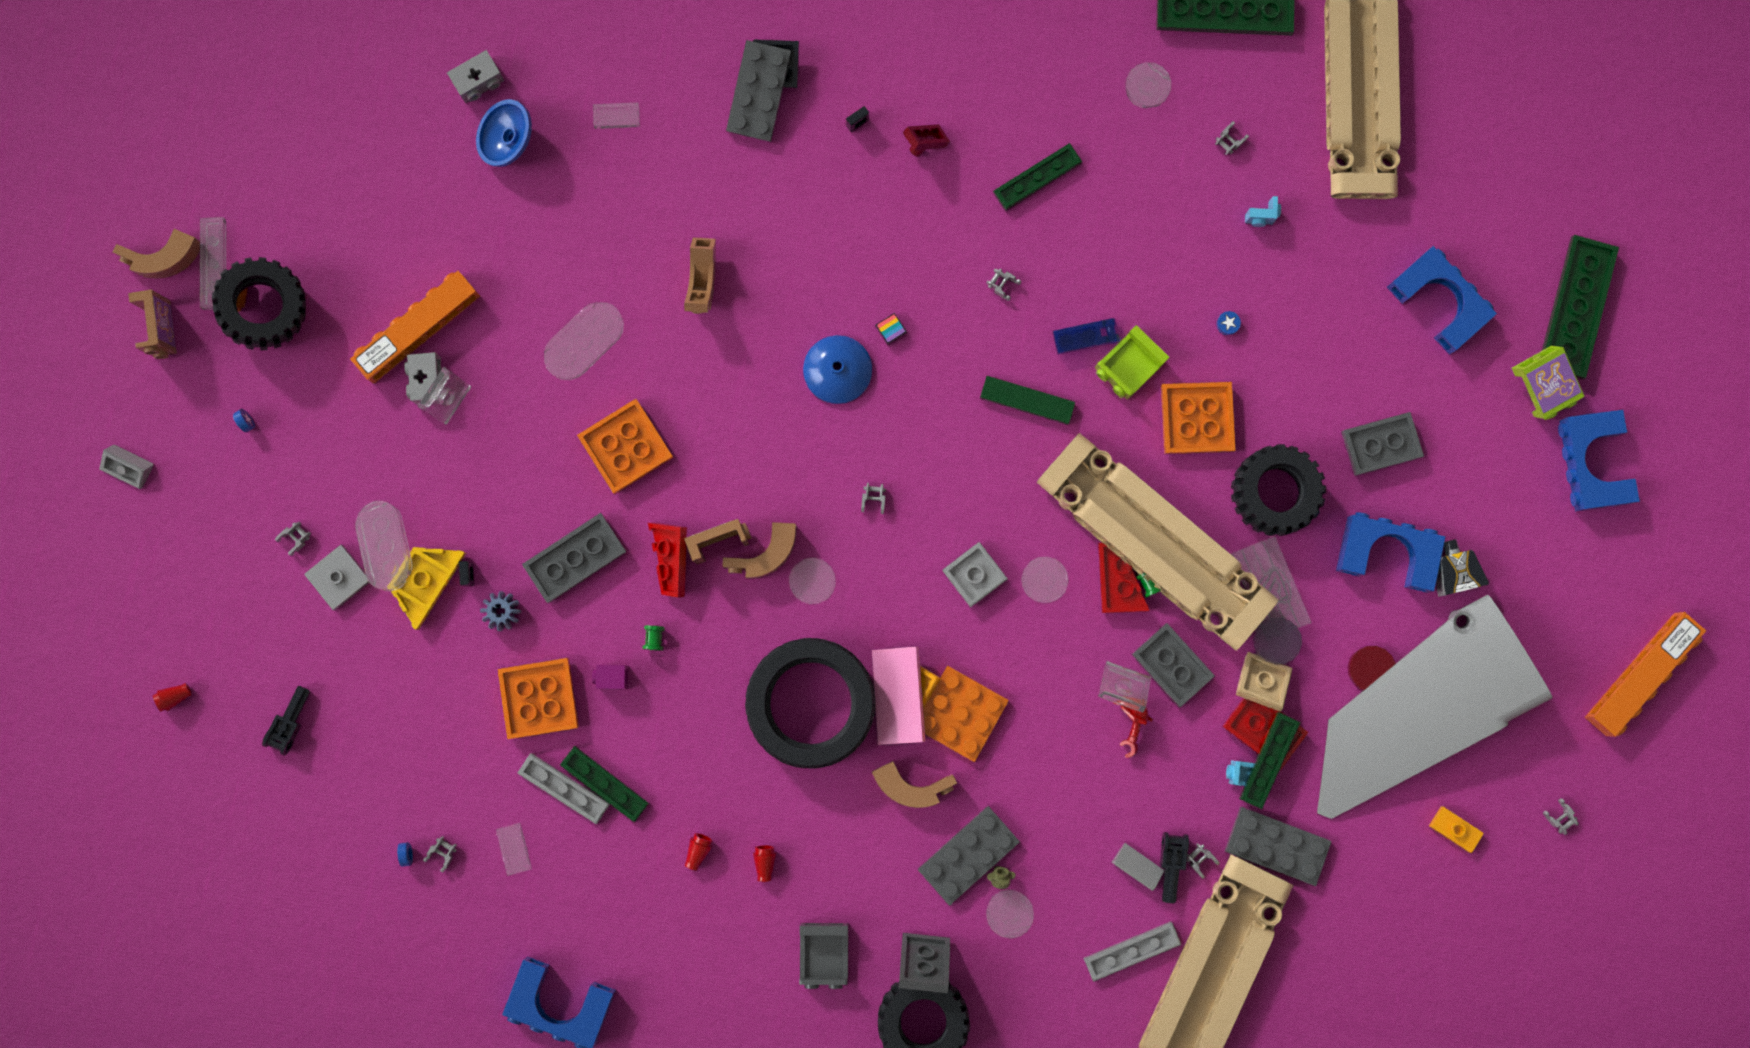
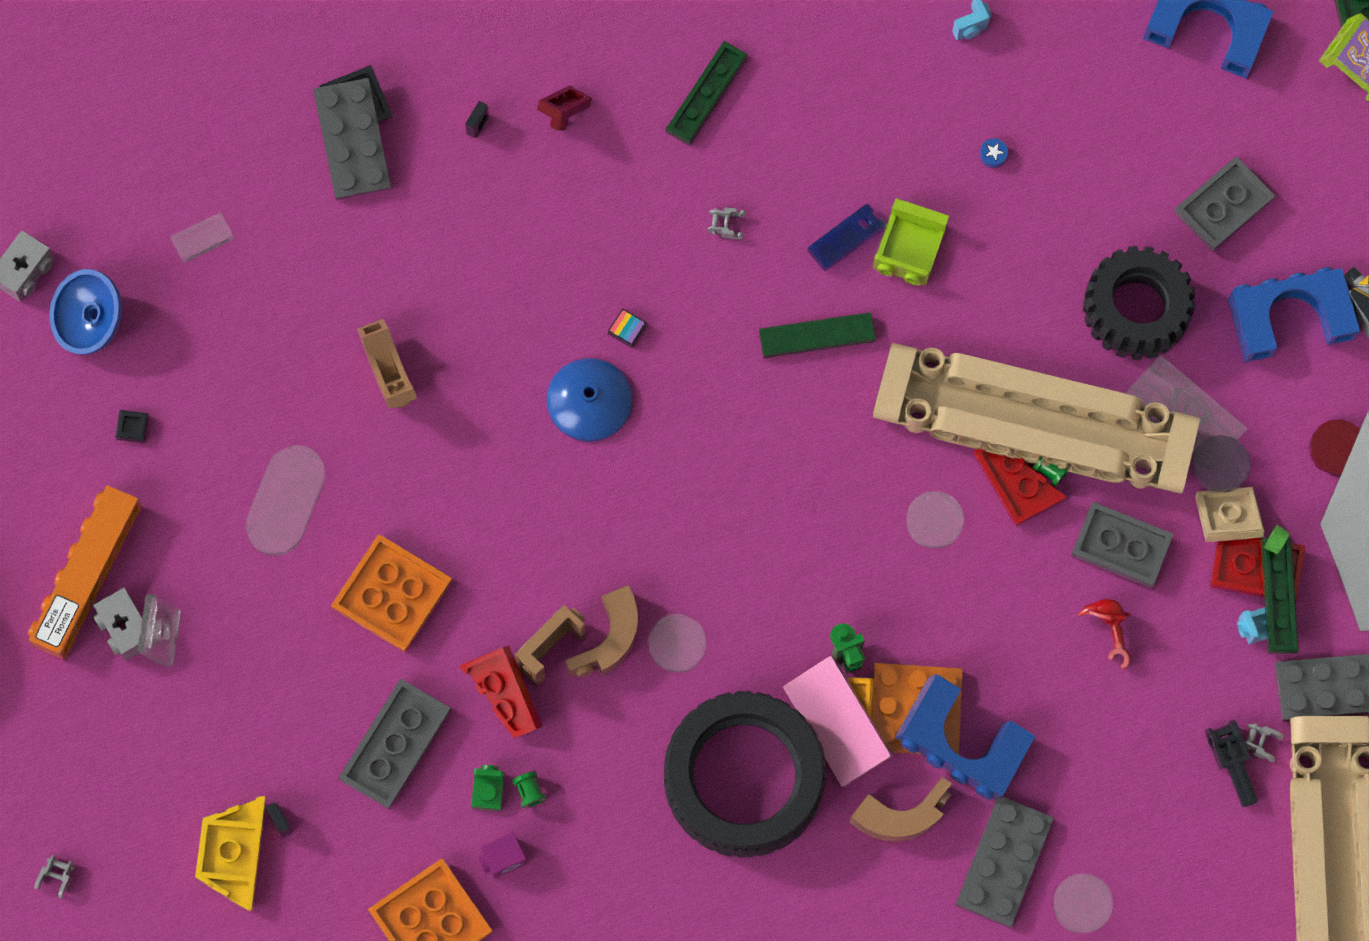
camera: 30 degrees left, 10 degrees down
(337, 577) = (129, 896): light grey plate -> none
(383, 545) = (167, 833): clear tile -> none
(496, 619) = (344, 833): sand blue gear -> none
(500, 234) = (132, 426): none -> black tile
(625, 622) = (488, 788): none -> green bracket
(865, 497) = (709, 516): light grey piece -> none
(932, 637) = (847, 647): none -> green hips
(955, 736) = (925, 734): none -> blue arch
(974, 574) = (855, 549): light grey plate -> none
(1001, 877) = (1053, 866): olive plate -> none
(1124, 686) = (1082, 590): clear tile -> none
(1132, 951) = (1238, 879): light grey tile -> none
(1138, 866) = (1197, 783): light grey slope -> none
(1198, 418) = (1012, 268): orange plate -> none
(1288, 720) = (1277, 539): none -> bright green axle

